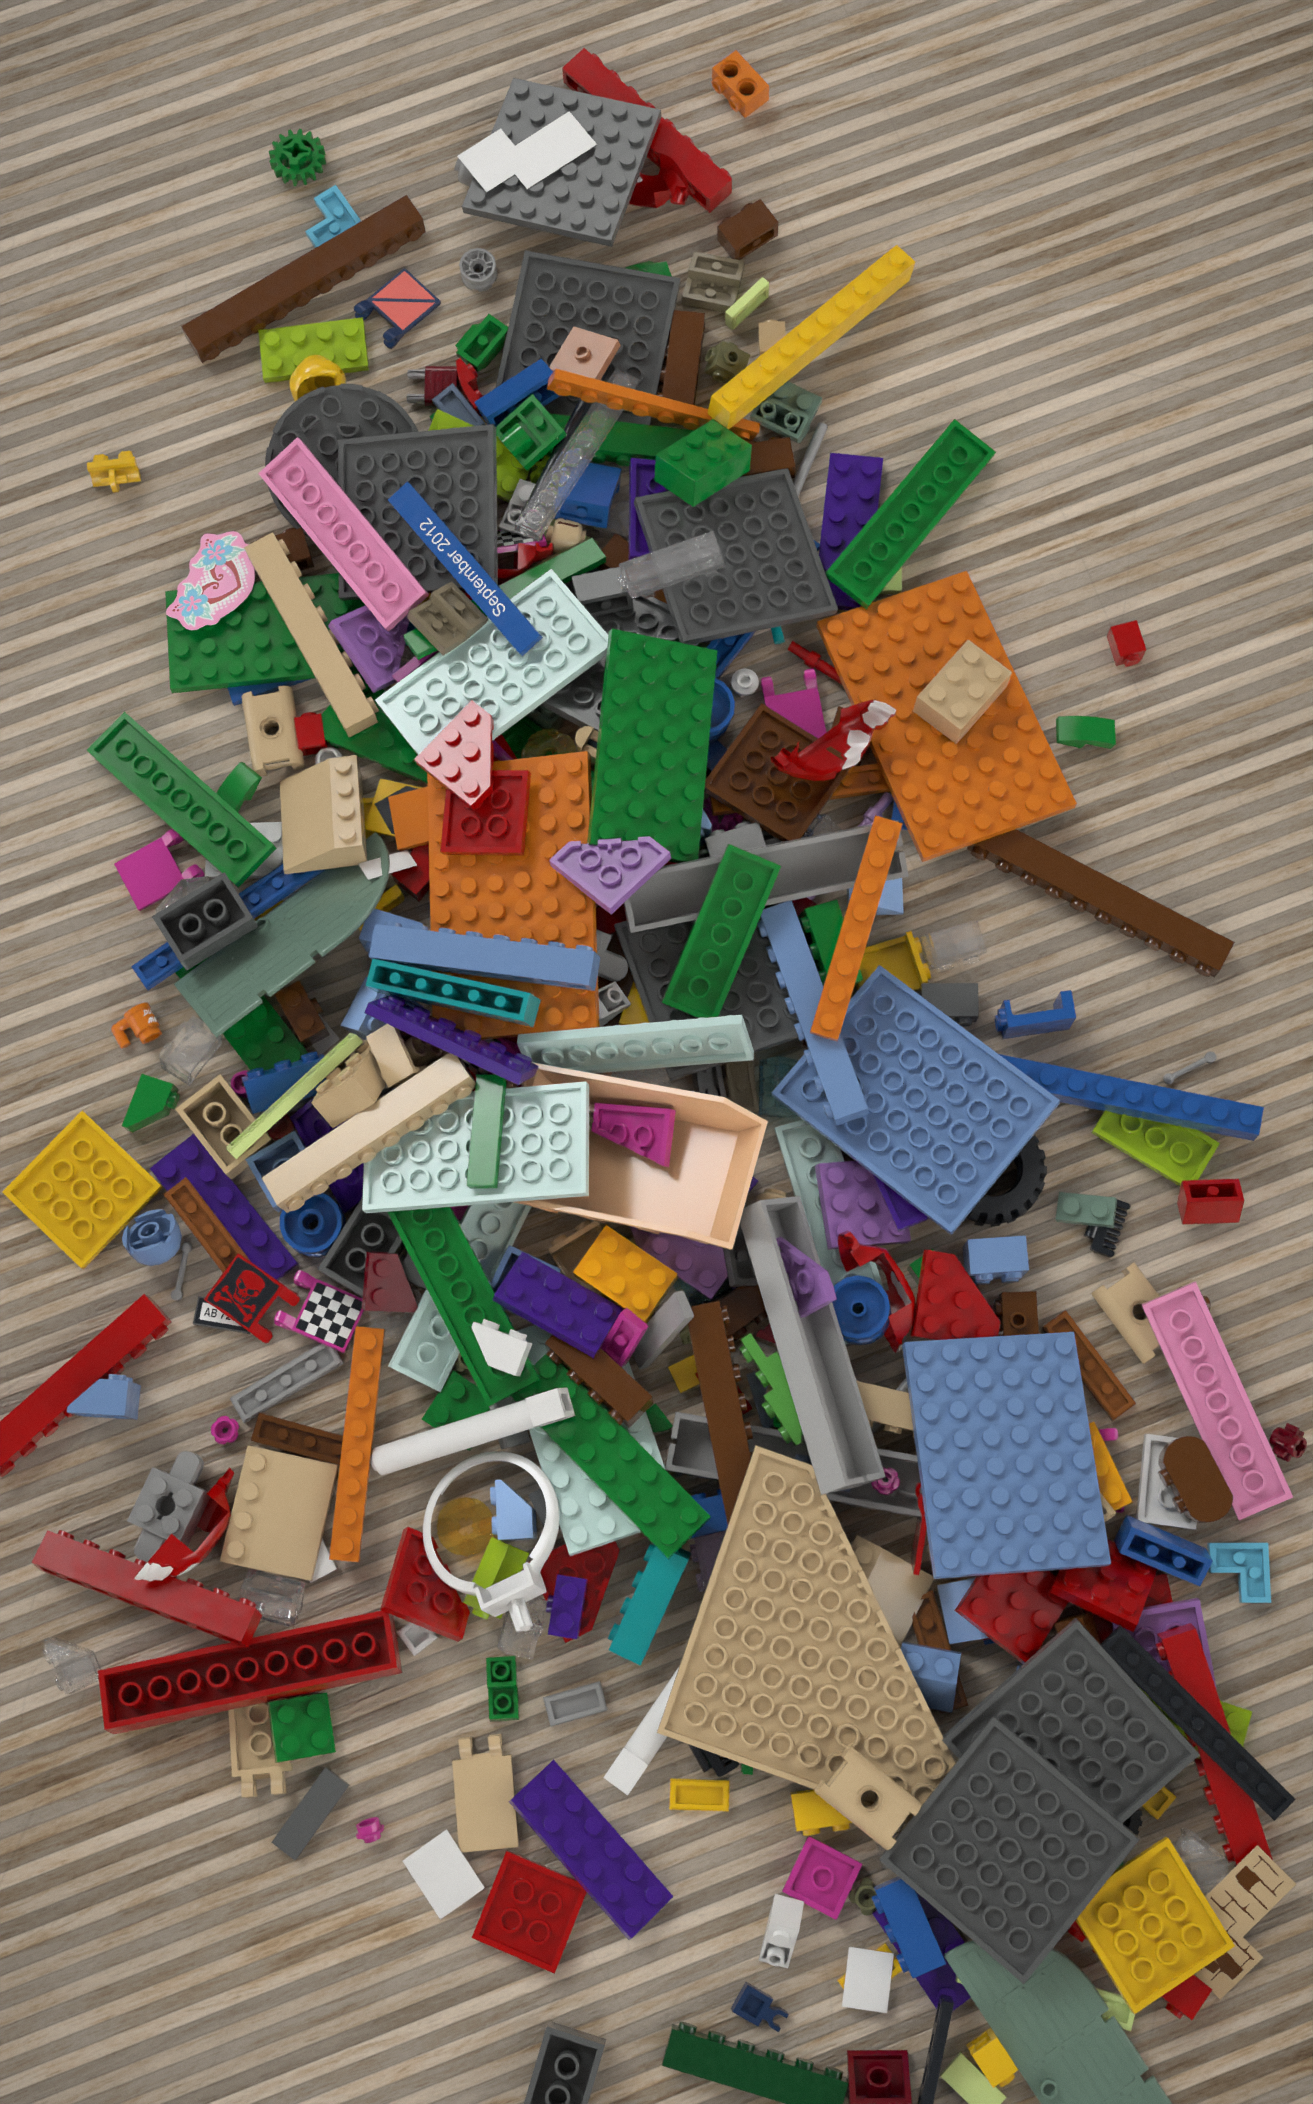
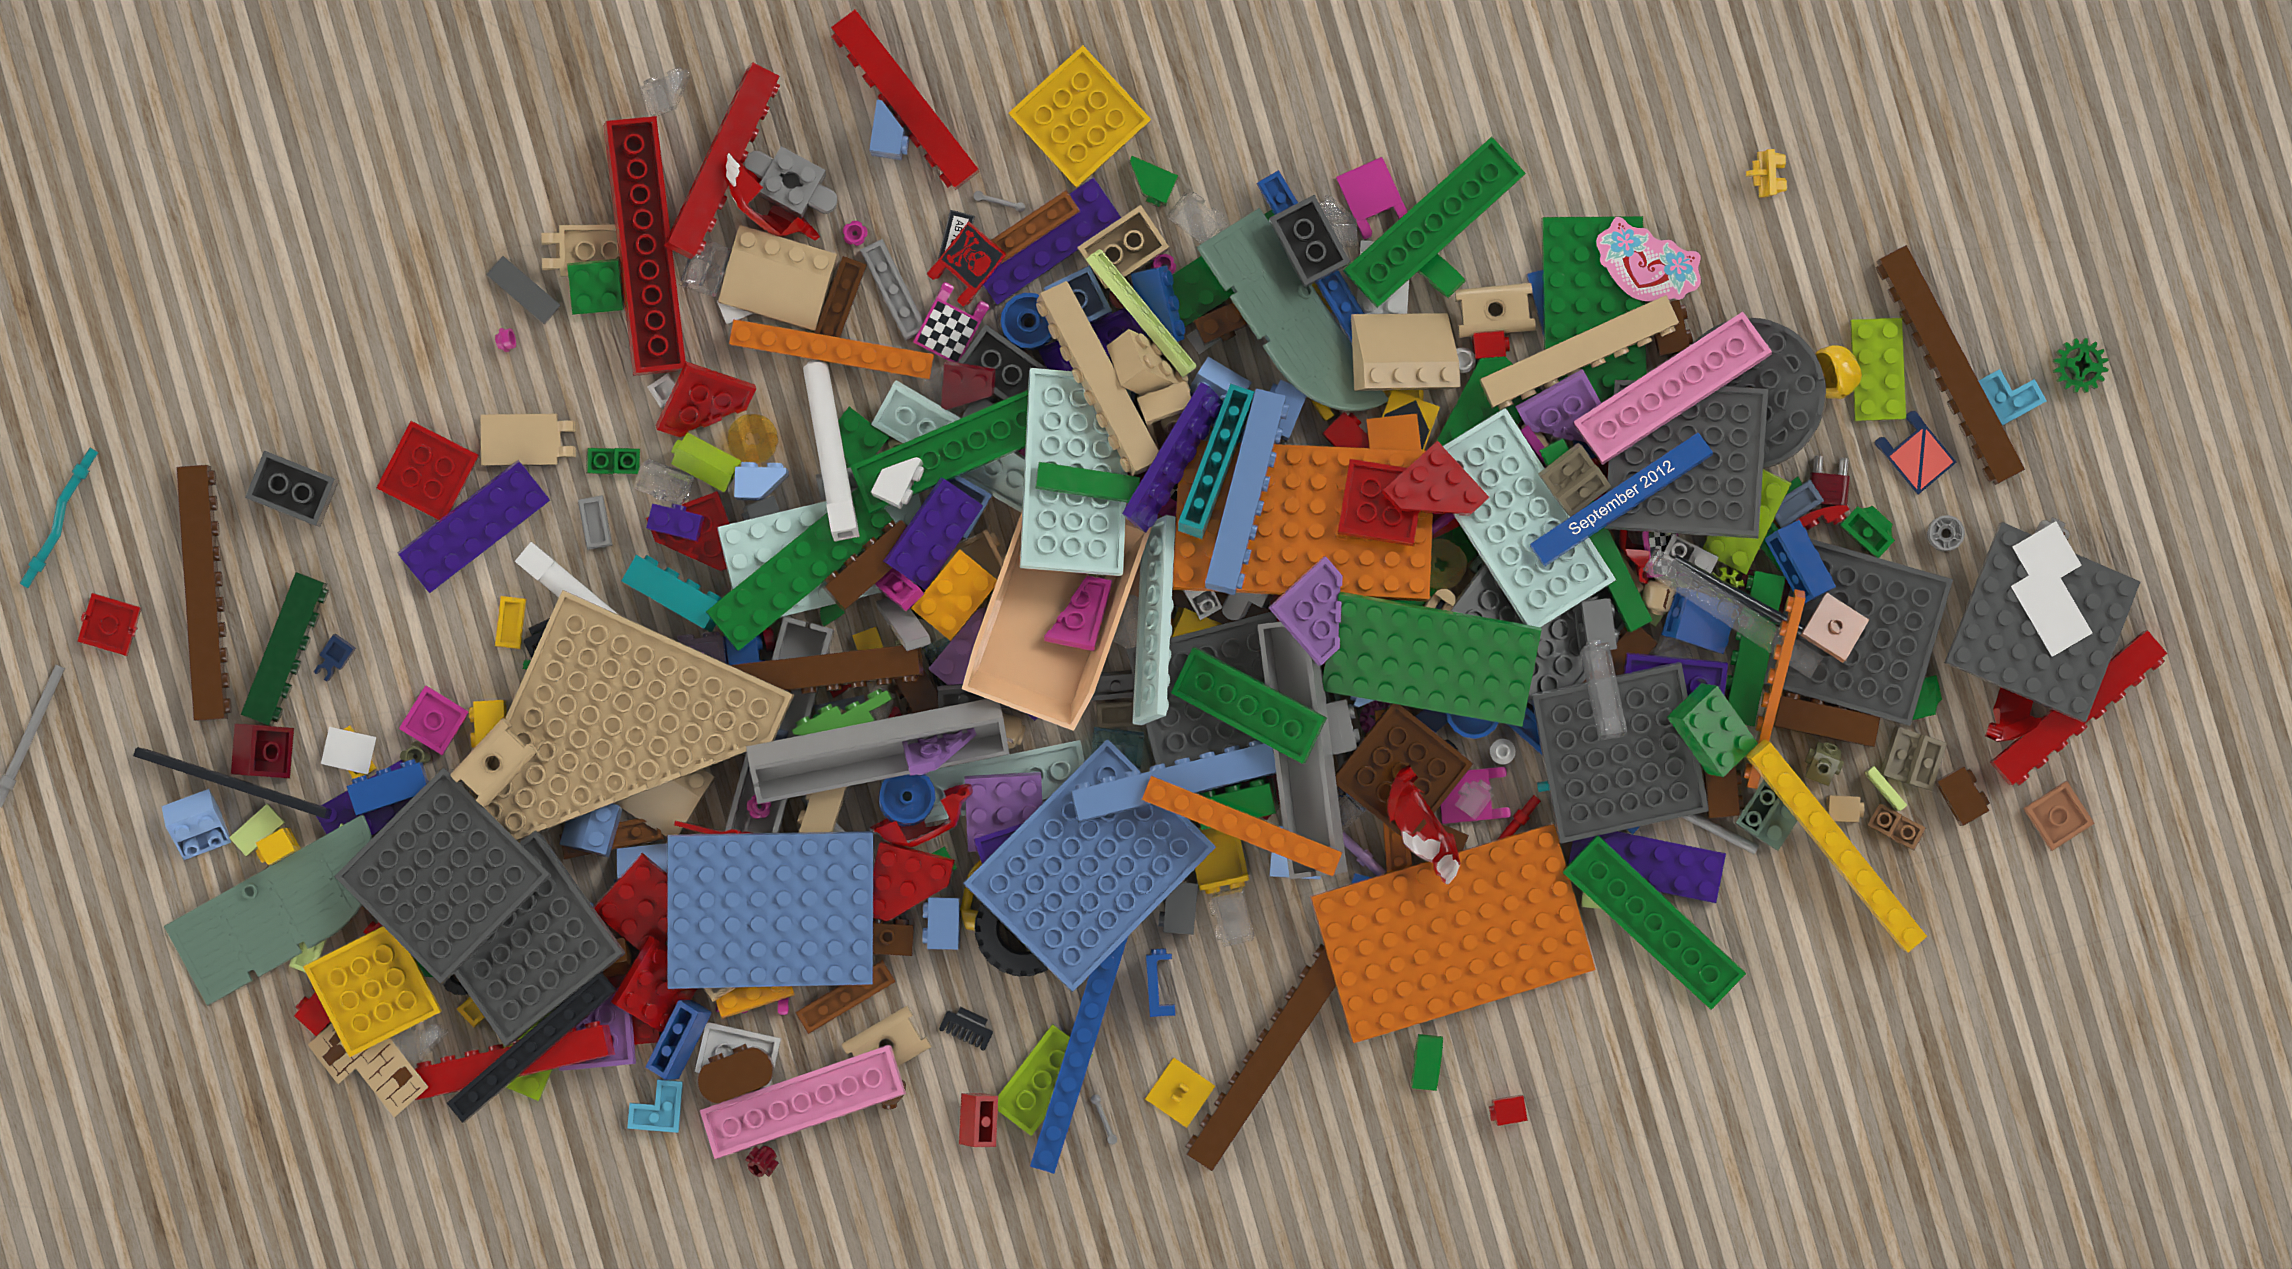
camera: 85 degrees right, 10 degrees up
(142, 1023) = (1227, 176): orange piece -> none
(153, 1238) = (1028, 178): medium blue cylinder -> none
(398, 862) = (1353, 420): white sticker -> none
(443, 1874) = (464, 399): white sticker -> none
(515, 1590) = (693, 483): white brick -> none
(530, 432) = (1759, 569): green plate -> none
(695, 1486) = (769, 639): none -> dark red tile
(744, 81) = (2122, 808): orange brick -> none
(758, 140) = (2058, 815): none -> nougat plate
(781, 1931) = (393, 681): white slope -> none
(785, 291) = (1897, 827): none -> medium nougat slope
(799, 699) = (1475, 798): none -> clear brick
(934, 1231) = (967, 914): none -> yellow bar
(962, 691) = (1466, 948): tan brick -> none
(1086, 1209) = (982, 1010): sand green plate -> none
(1149, 989) = (1180, 1092): none -> yellow piece

